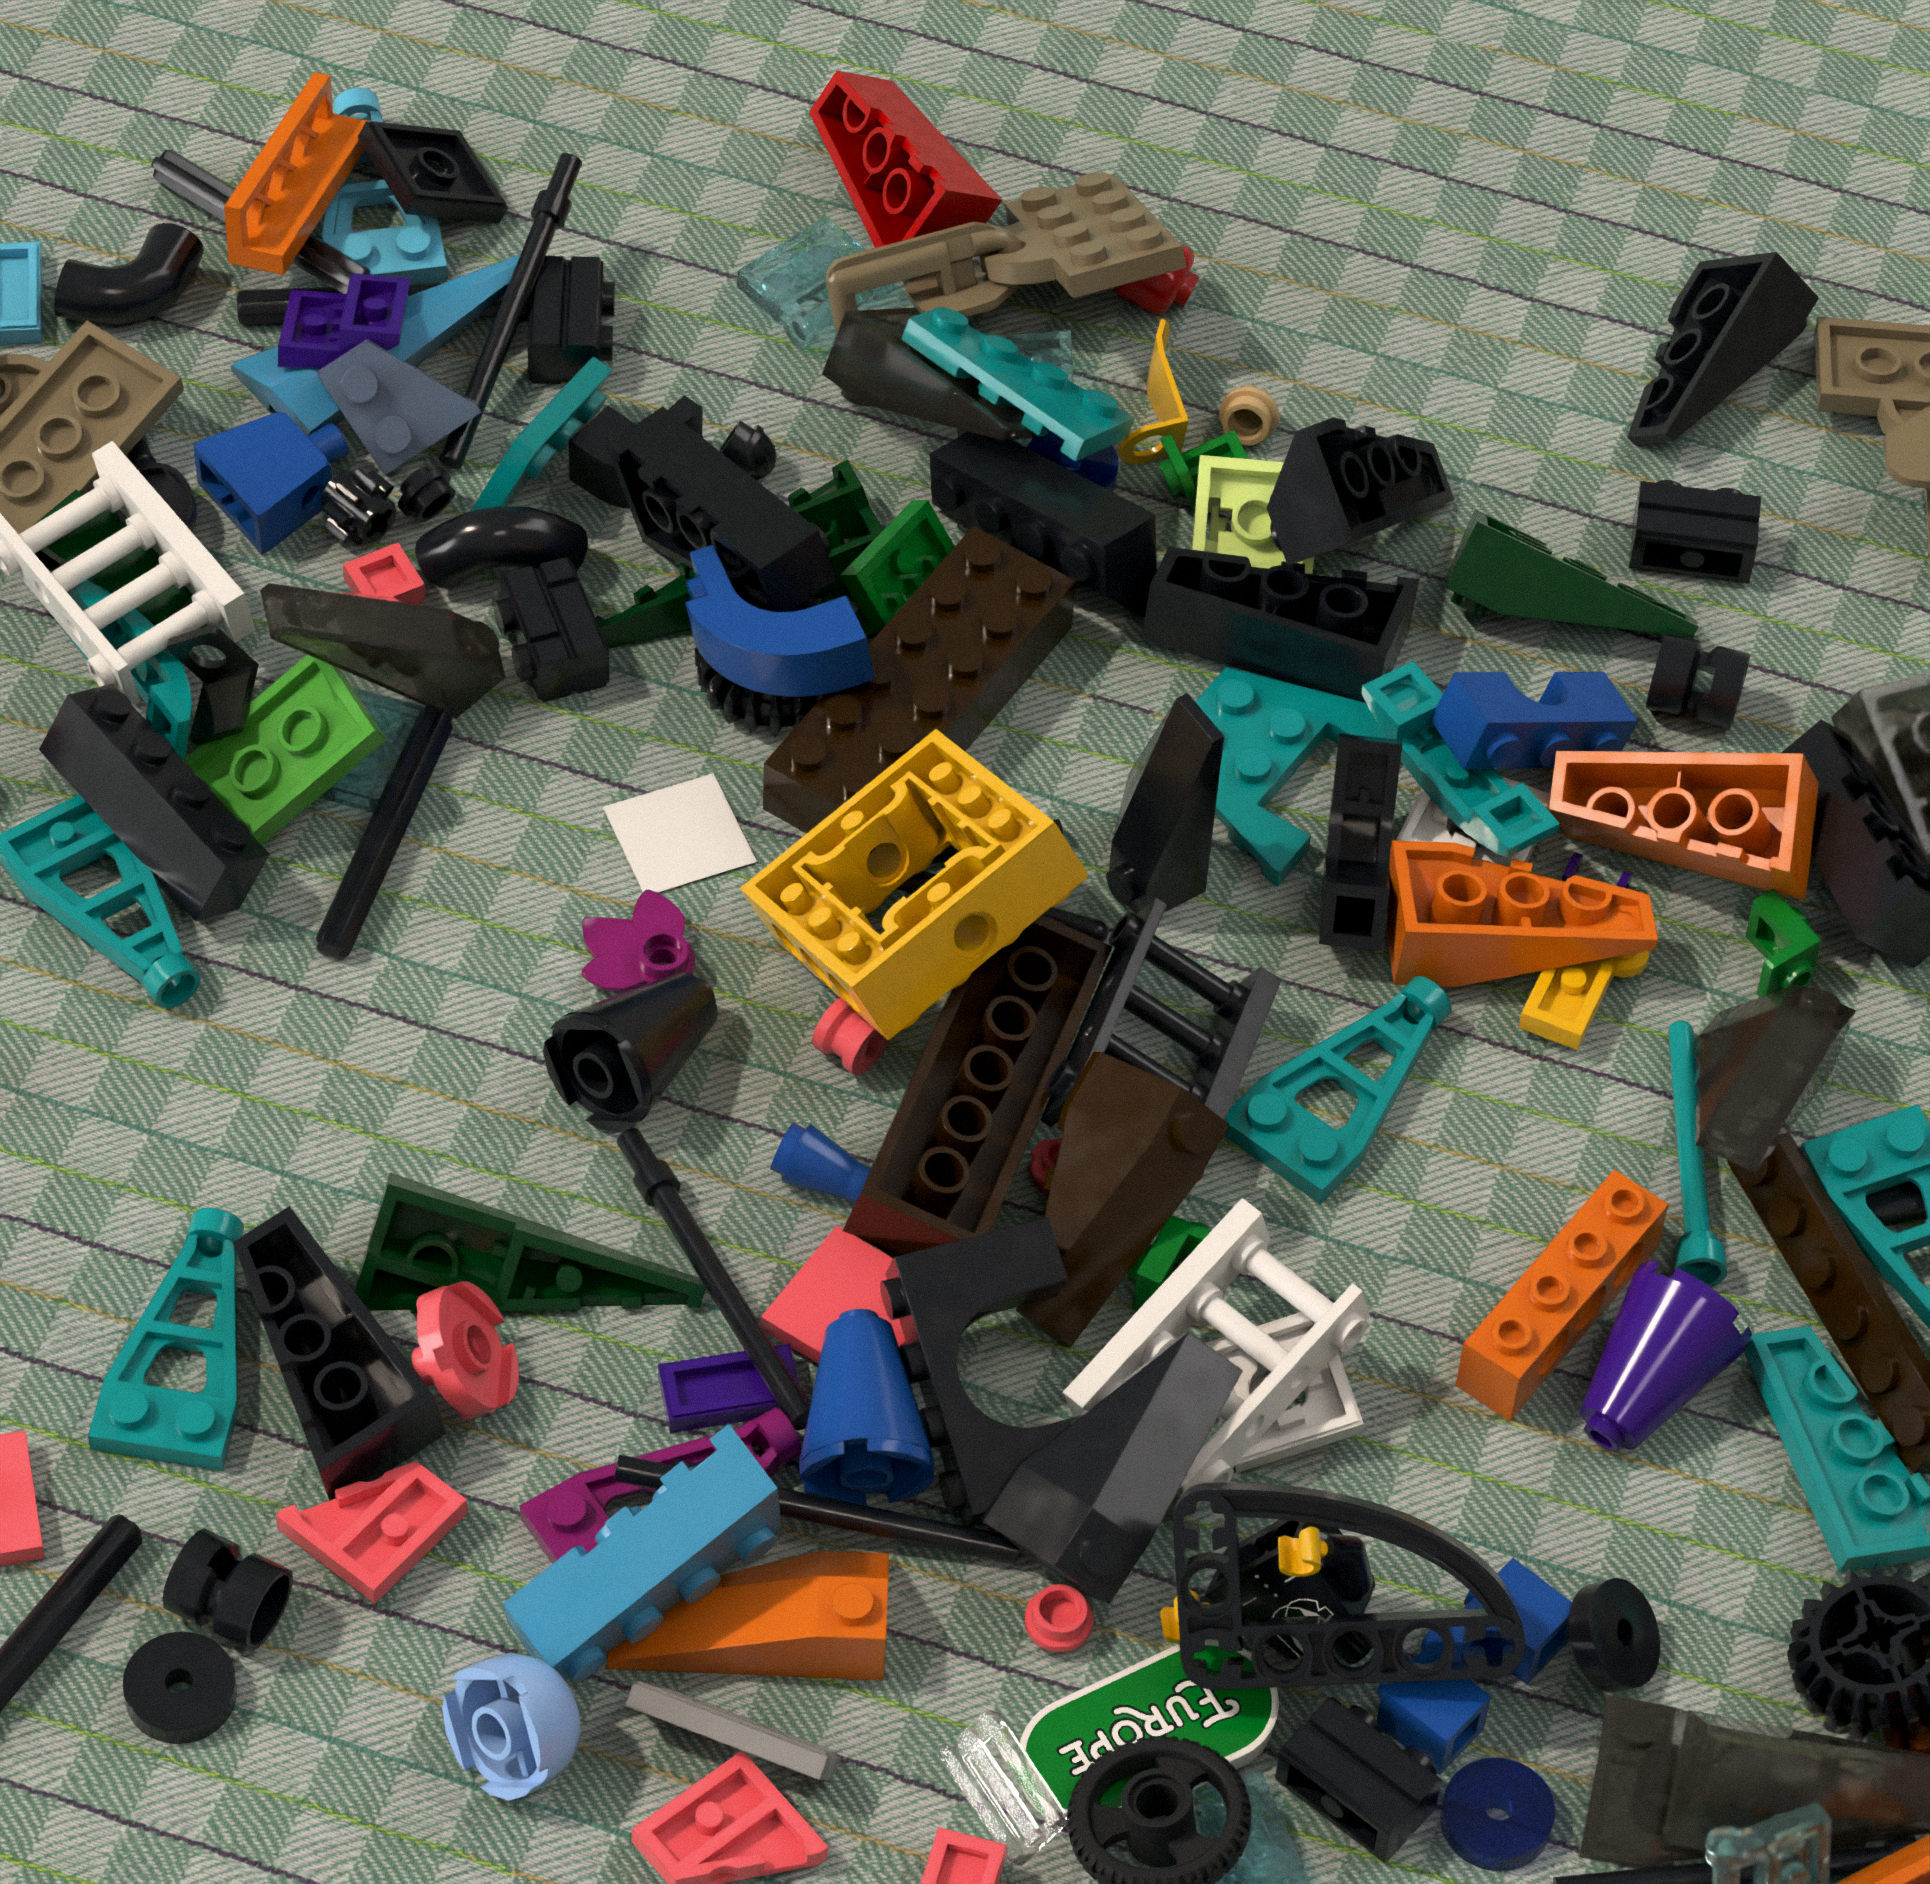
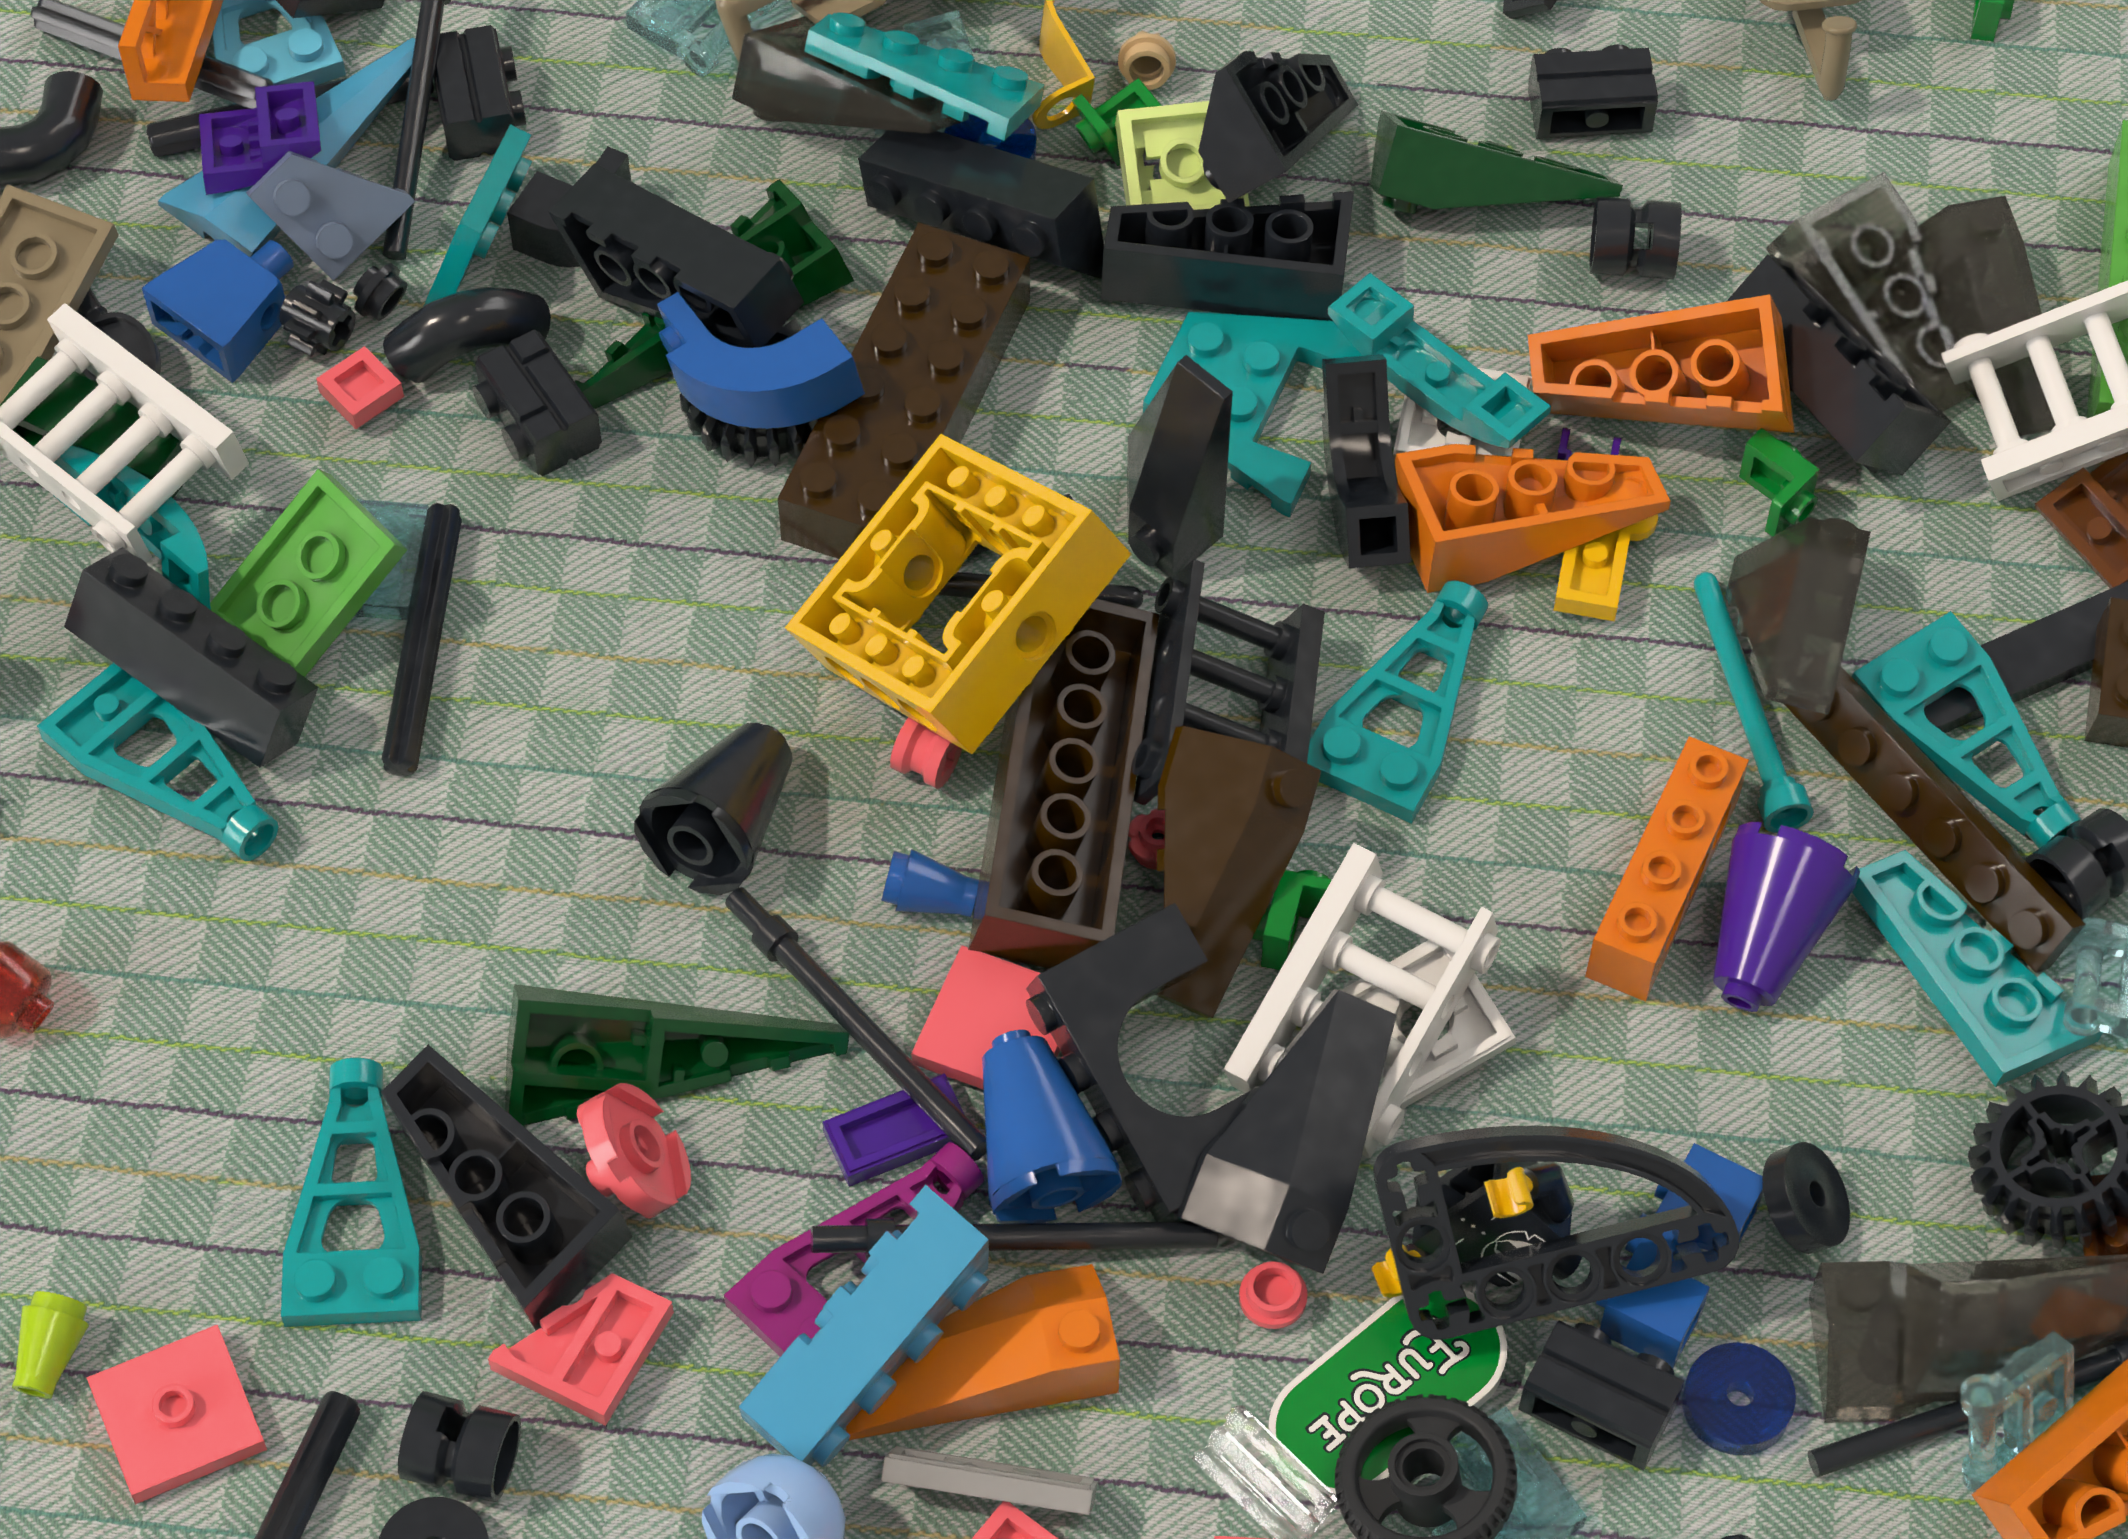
camera: 10 degrees left, 5 degrees up
(225, 684) = (232, 523): pearl dark grey bracket -> none
(390, 642) = (384, 450): clear smoke wedge -> none
(630, 949) = (689, 705): magenta plate -> none
(679, 834) = (707, 582): white sticker -> none
(750, 450) = (681, 186): black plate -> none
(896, 564) = (855, 274): green bracket -> none
(1500, 728) = (1468, 322): blue arch -> none

